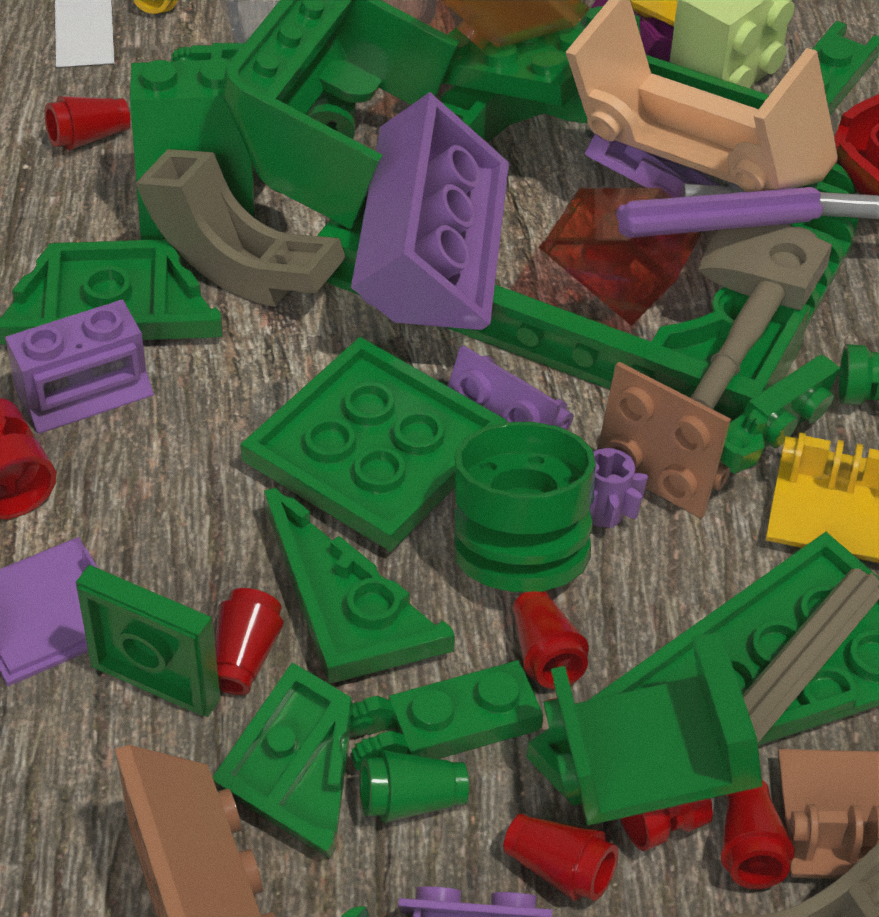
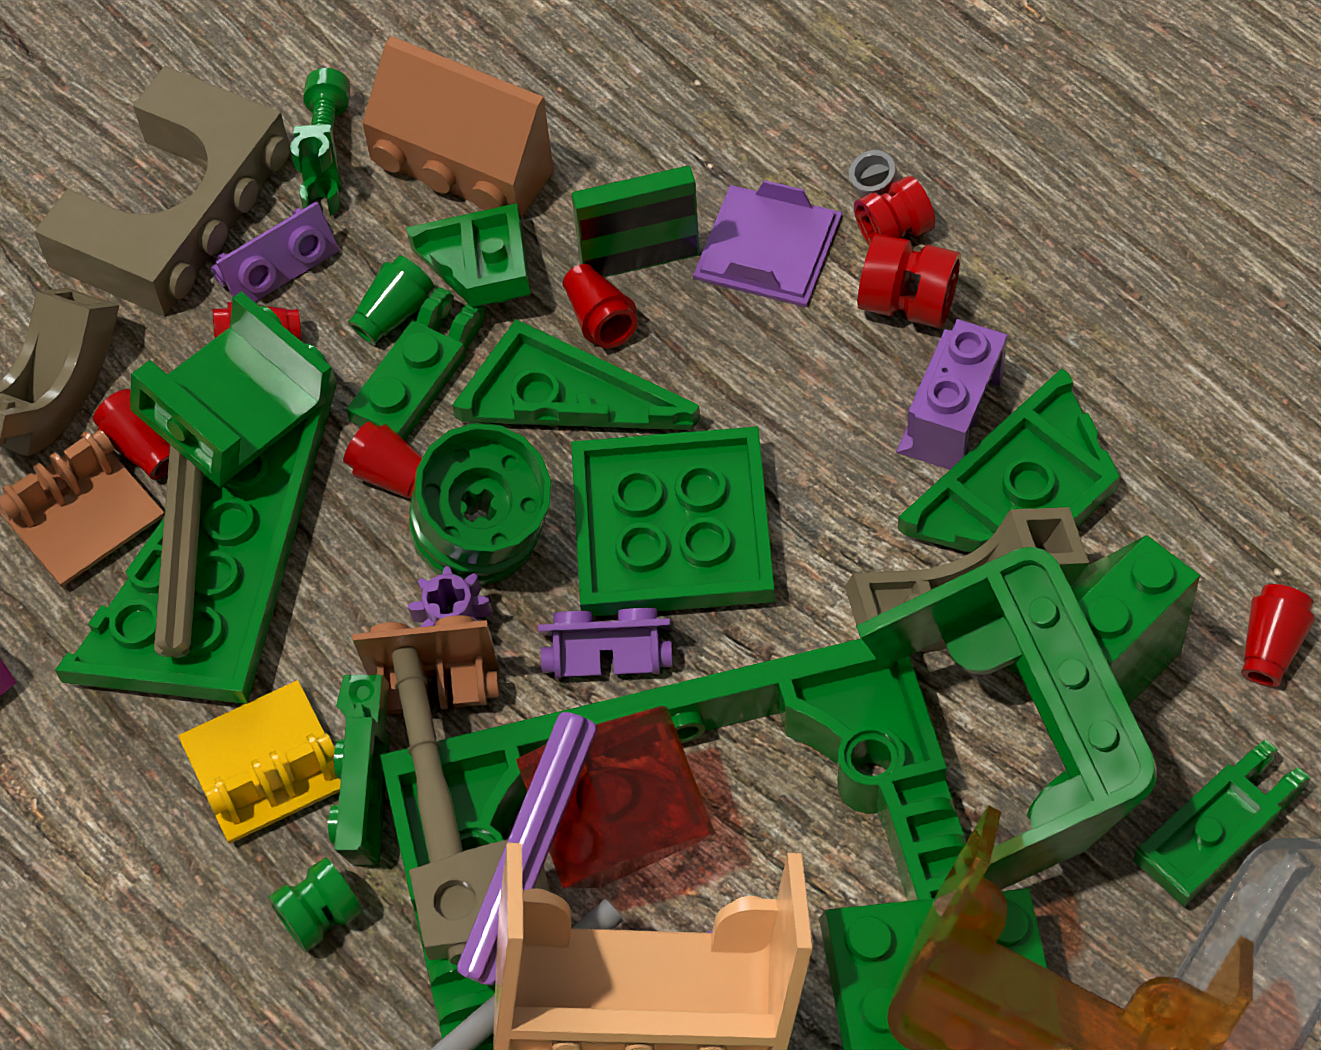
camera: 145 degrees right, 10 degrees up
(432, 221) = (797, 688): medium lavender slope -> none

